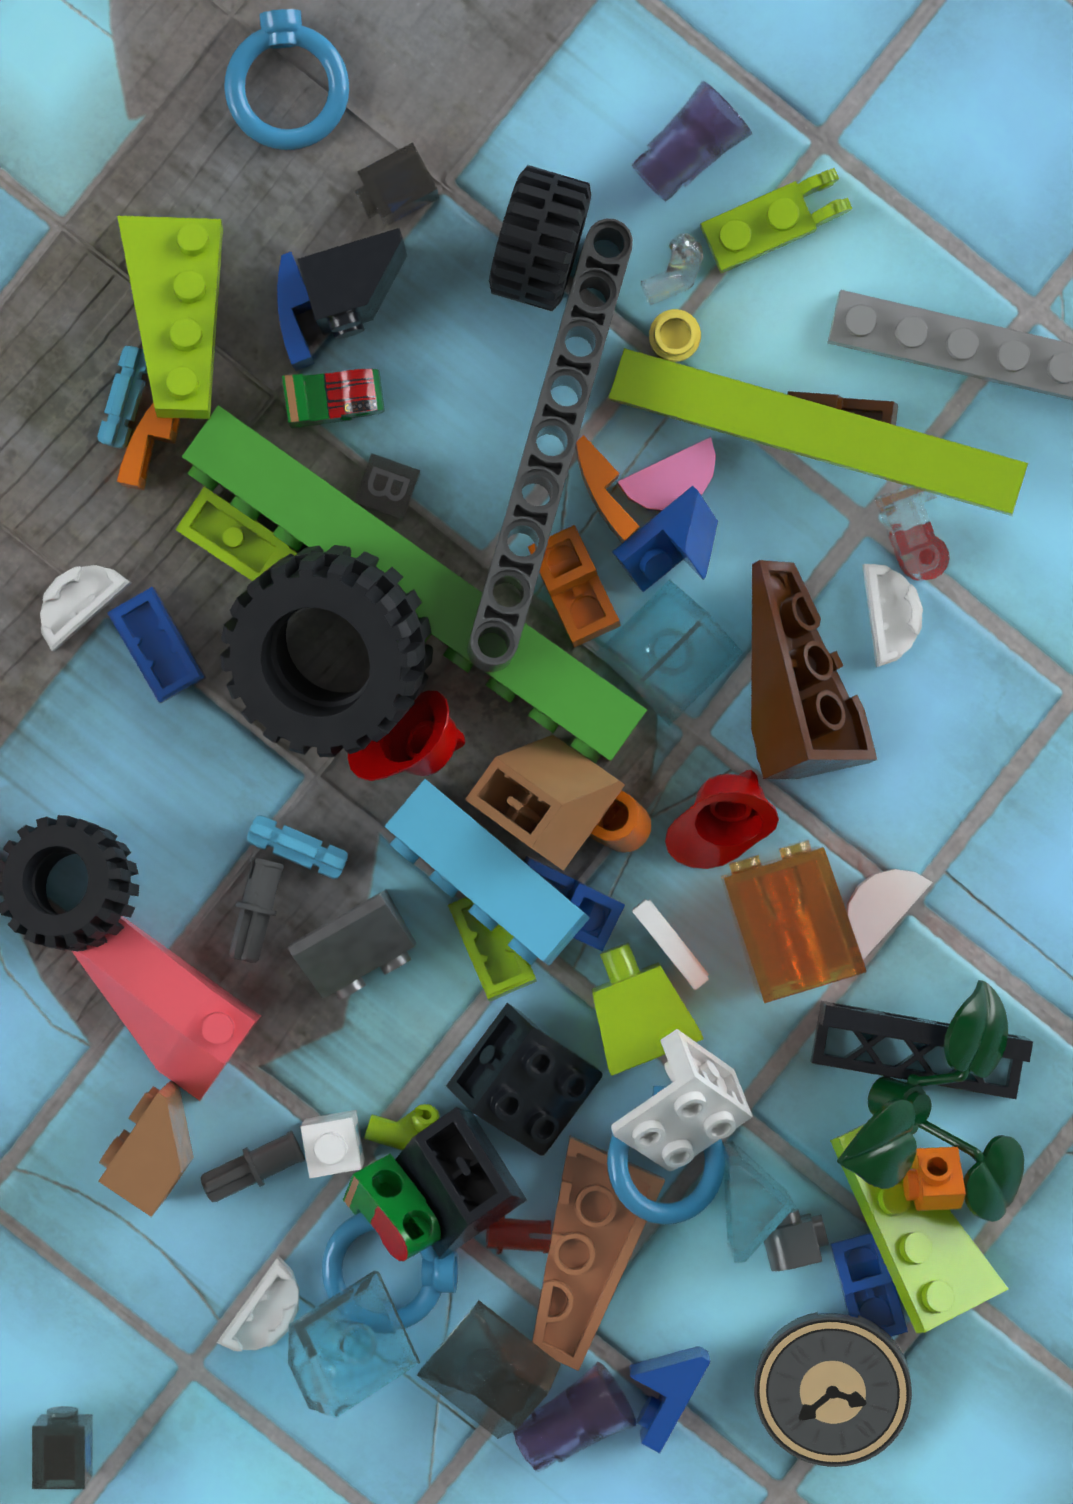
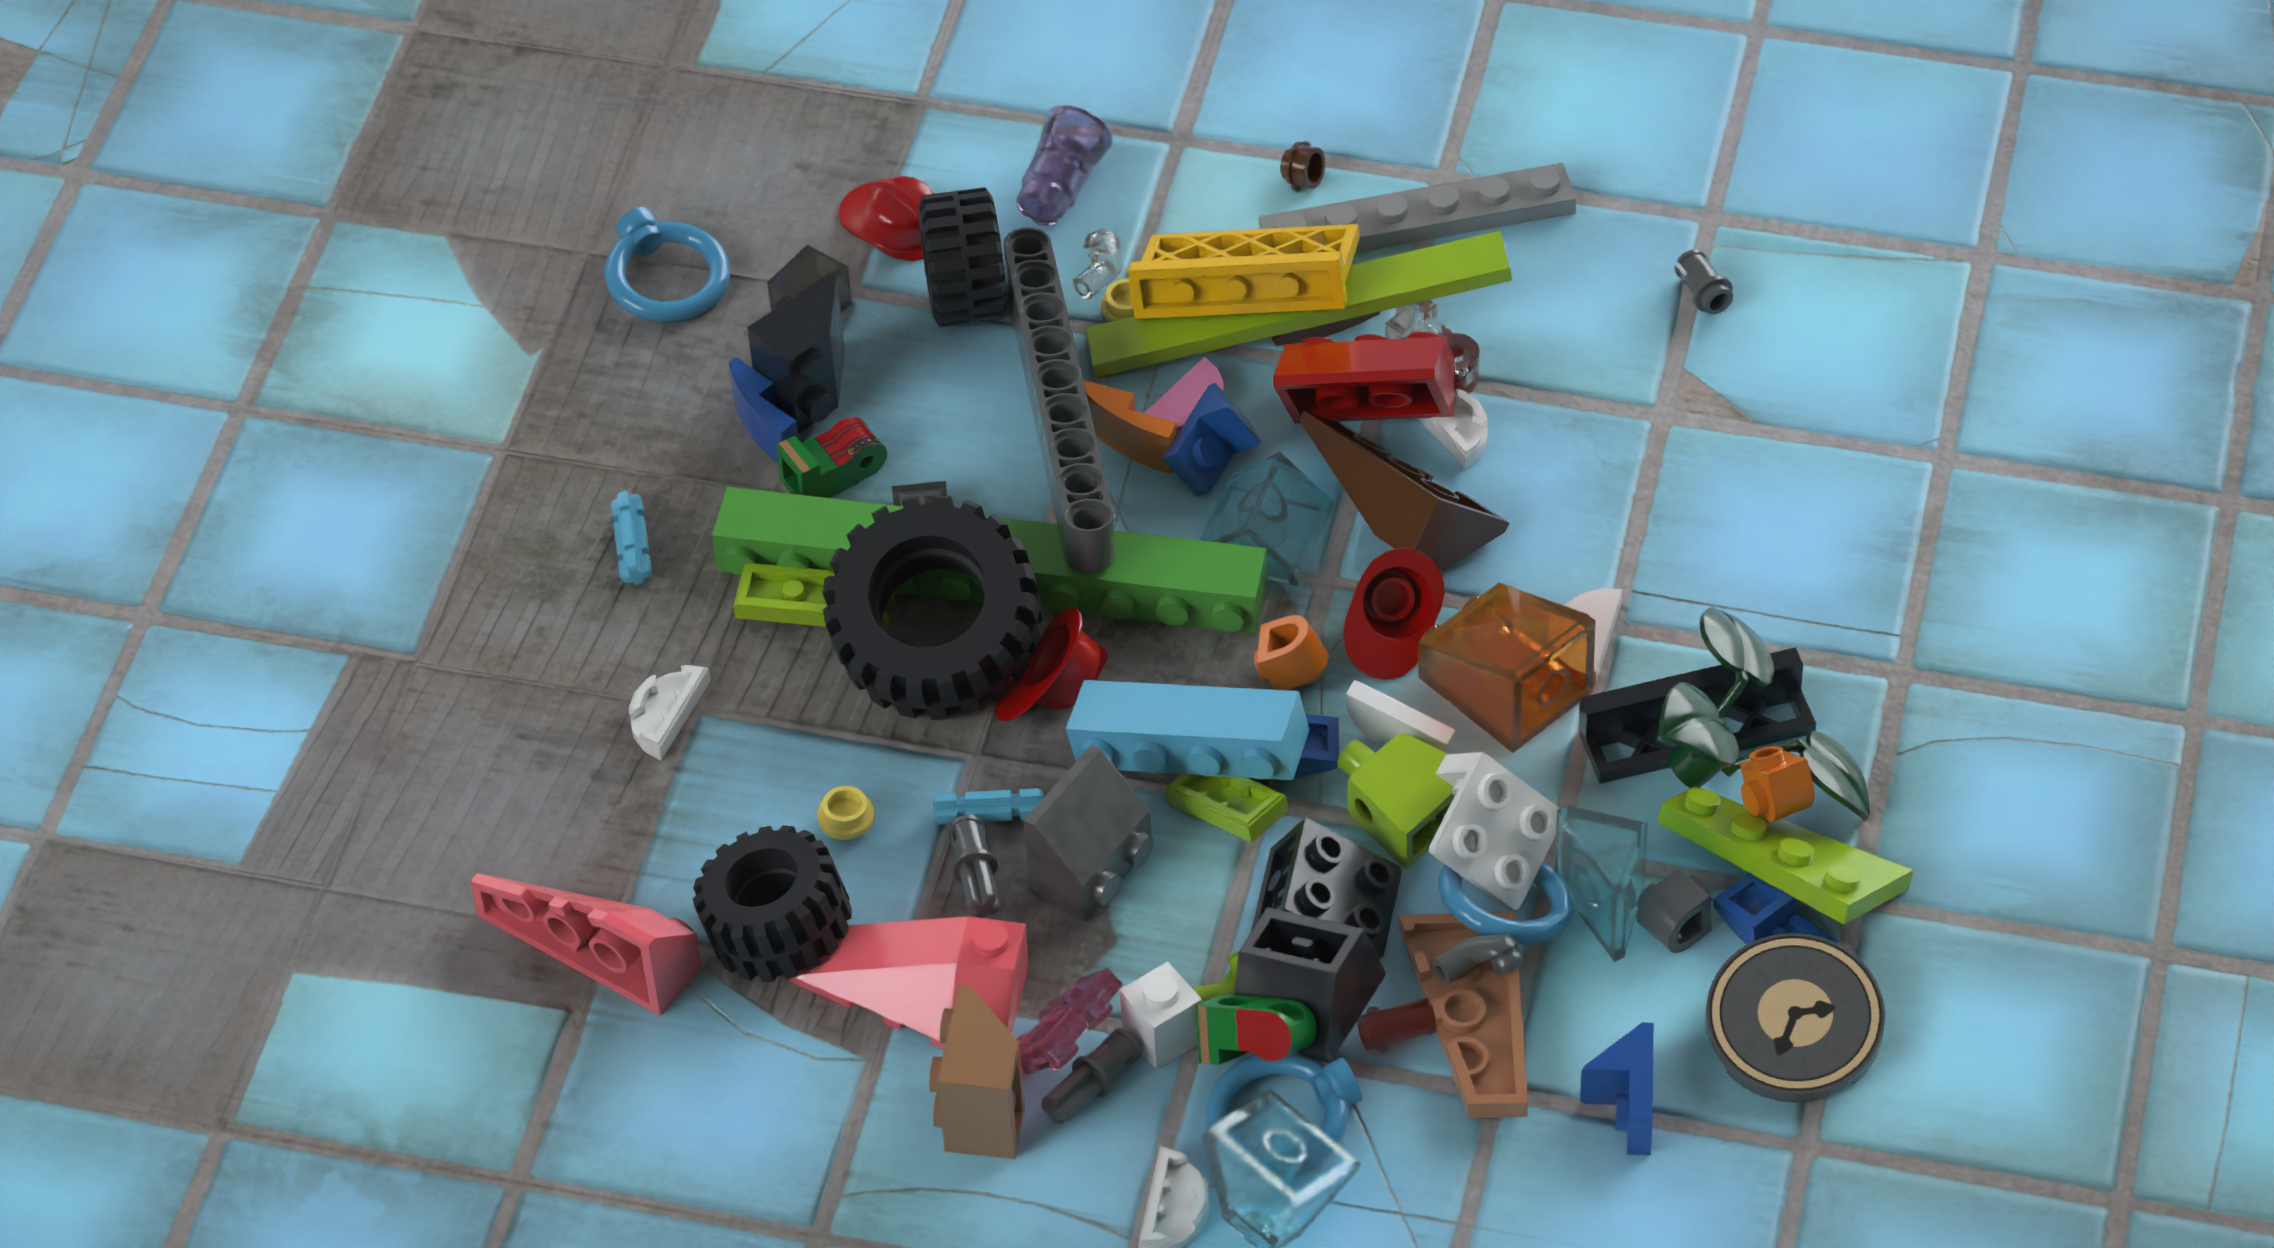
camera: 20 degrees left, 40 degrees down
(139, 450) = (674, 549): orange slope -> none
(156, 645) = (762, 703): blue plate -> none
(175, 298) = (649, 439): lime wing -> none
(177, 796) = (845, 813): none -> light yellow plate
(242, 1124) = (1065, 1019): none -> clear pink plate
(490, 1371) = (1437, 1142): clear smoke slope -> none
(520, 114) = (886, 215): none -> red piece
(546, 797) = (1213, 648): medium nougat slope -> none
(575, 1419) = (1551, 1144): clear purple plant -> none
(576, 588) = (1143, 510): orange slope -> none
(612, 1219) = (1474, 951): none -> dark grey arm
(760, 396) = (1247, 272): none -> yellow fence
(770, 221) = (1169, 197): lime hinge -> none
(827, 562) = (1367, 378): none -> red slope
(911, 245) = (1303, 166): none -> reddish brown plate

